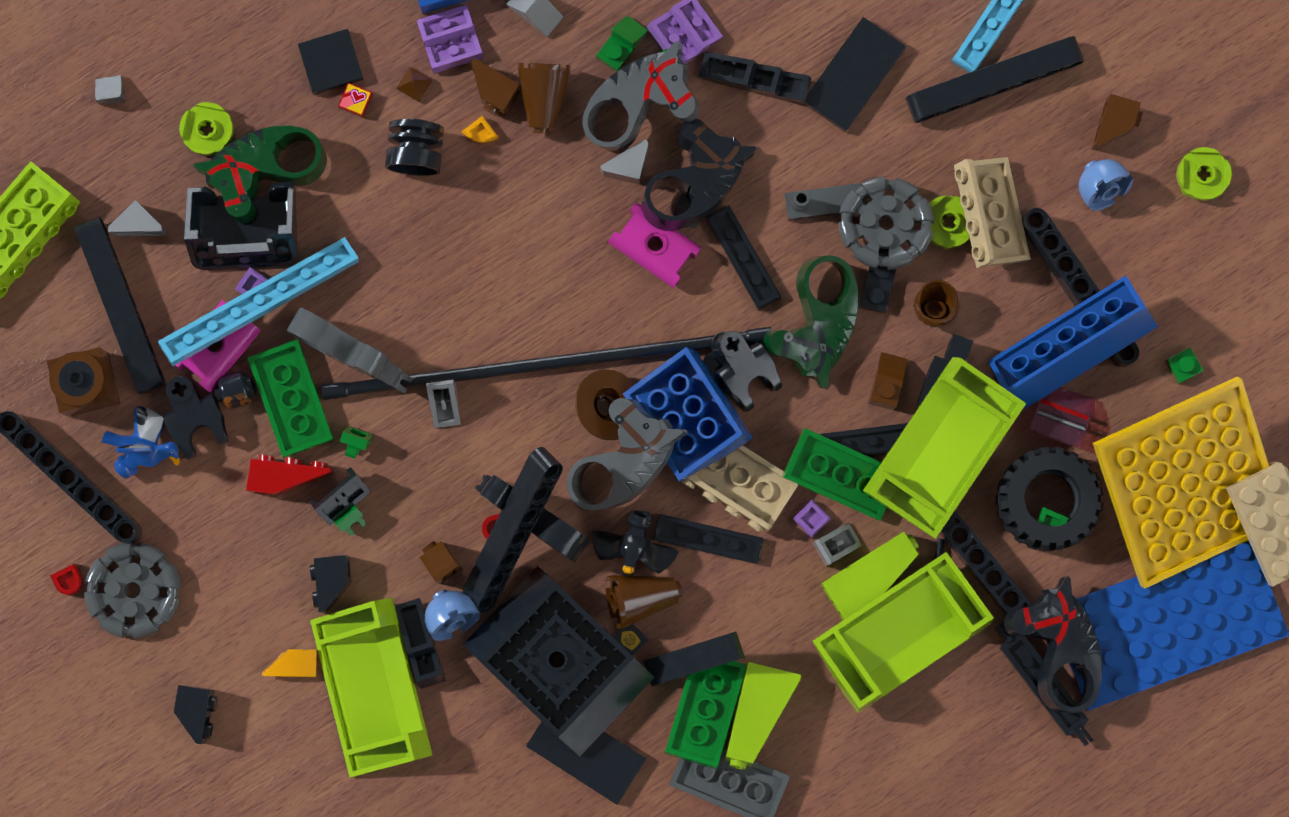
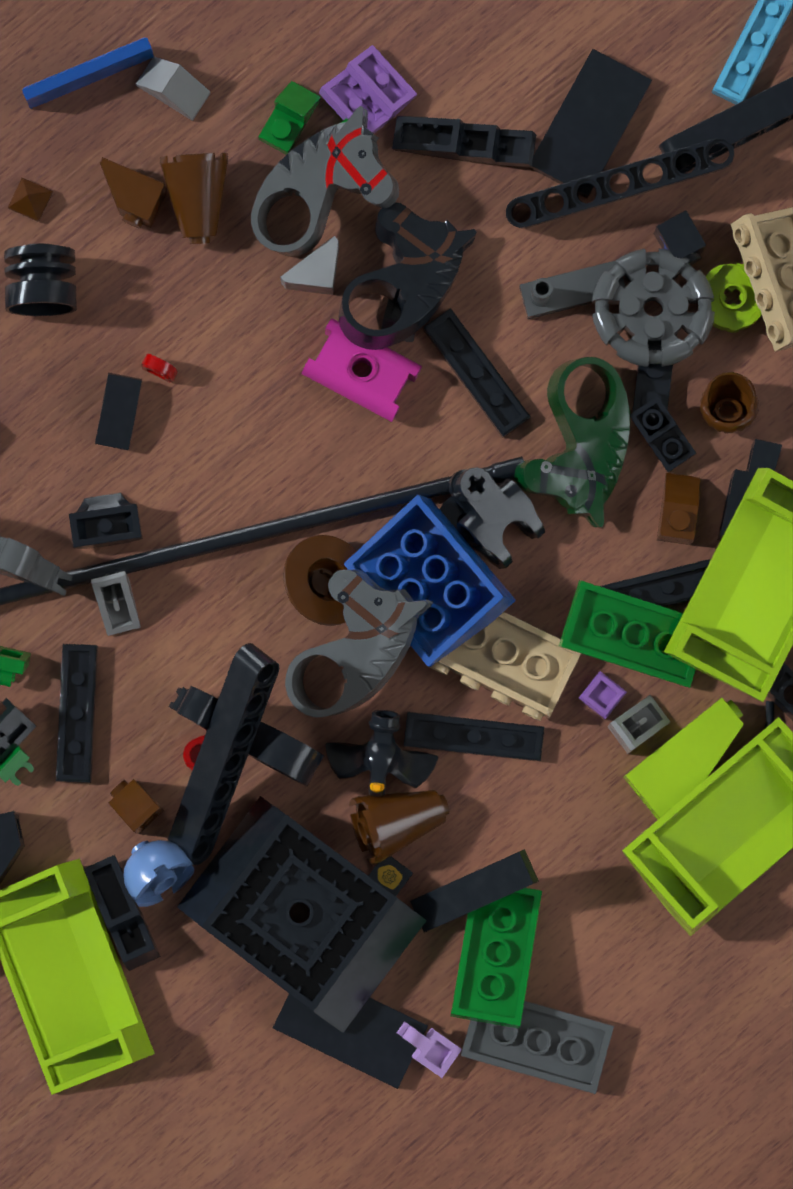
camera: 10 degrees left, 0 degrees up
(403, 485) = (76, 713): none -> black tile
(442, 340) = (105, 522): none -> black slope
(450, 39) = (69, 136): medium lavender slope -> none
(463, 255) = (118, 411): none -> black slope
(480, 132) = (121, 251): light orange tile -> none
(498, 225) = (159, 368): none -> red tile
(647, 777) = (432, 1050): none -> lavender plate
(759, 706) = (564, 942): lime slope -> none
(857, 121) = (602, 181): none -> black beam
(882, 322) = (662, 434): none -> black slope
(914, 171) = (681, 237): none -> black brick

